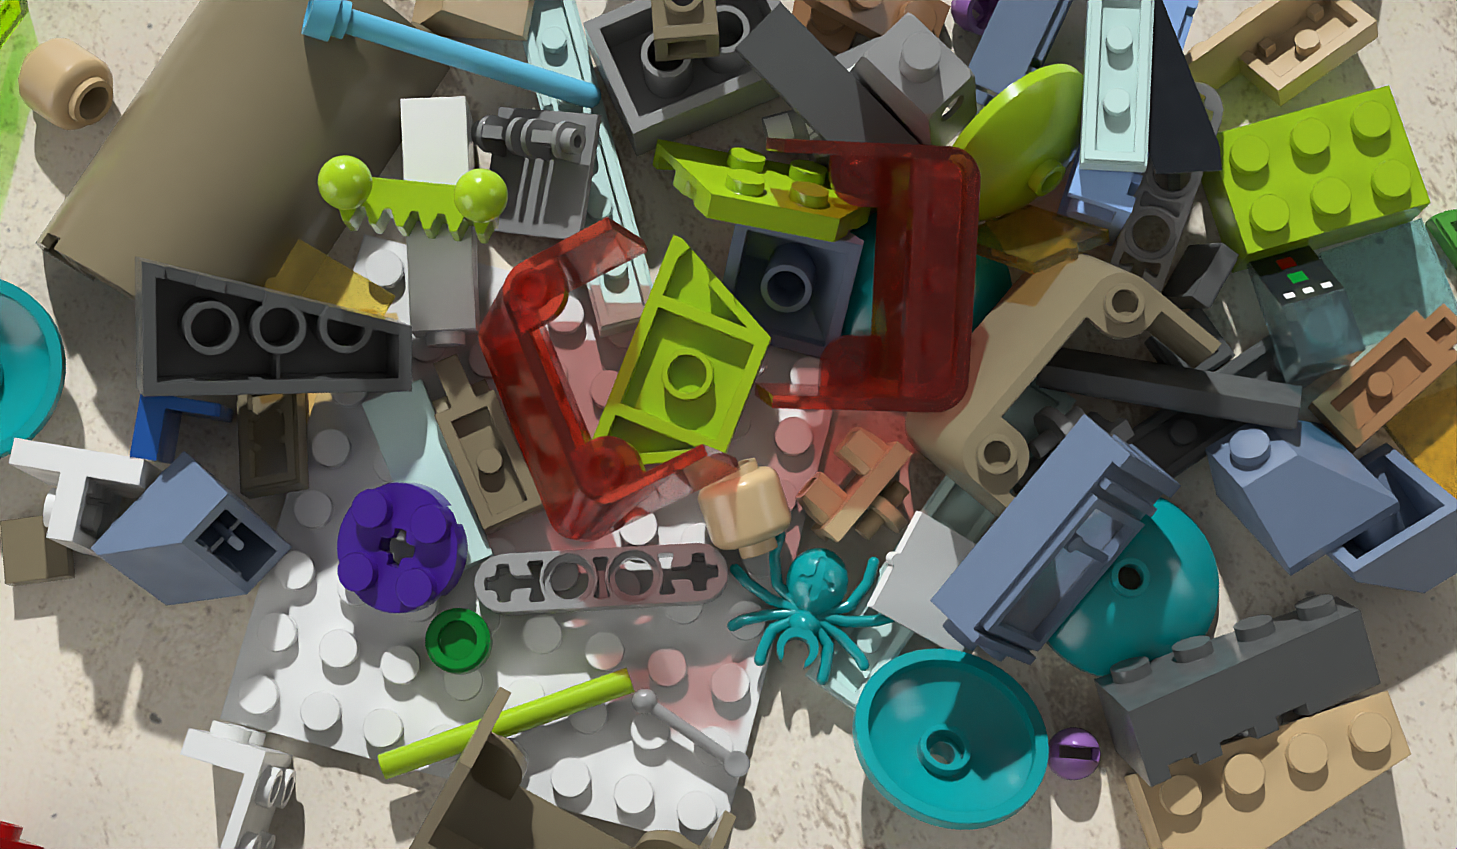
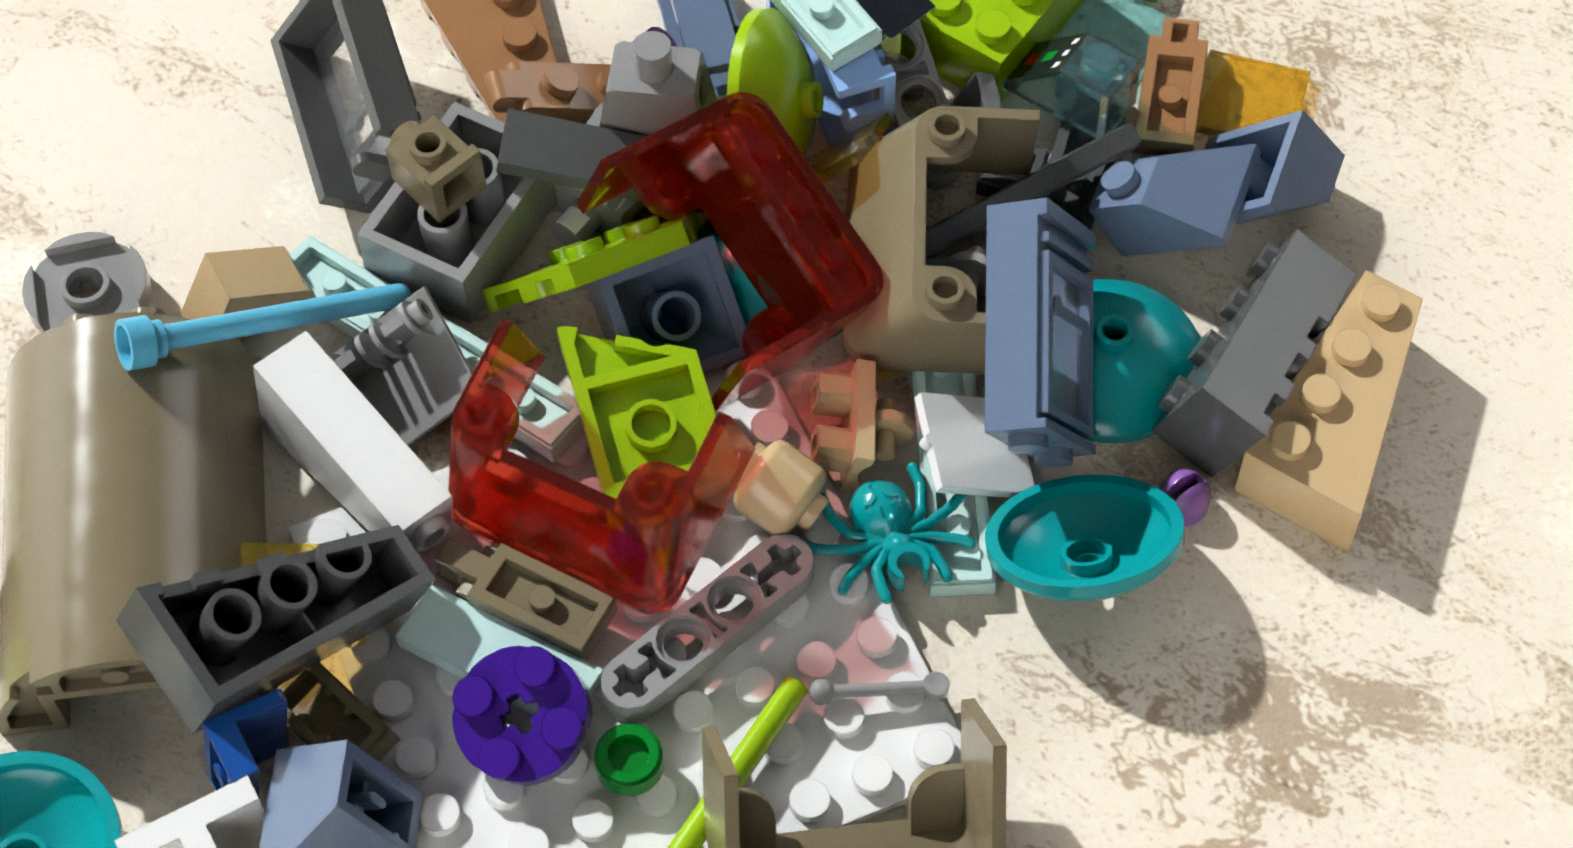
camera: 40 degrees left, 20 degrees down
(473, 201) = (339, 416): lime gear -> none

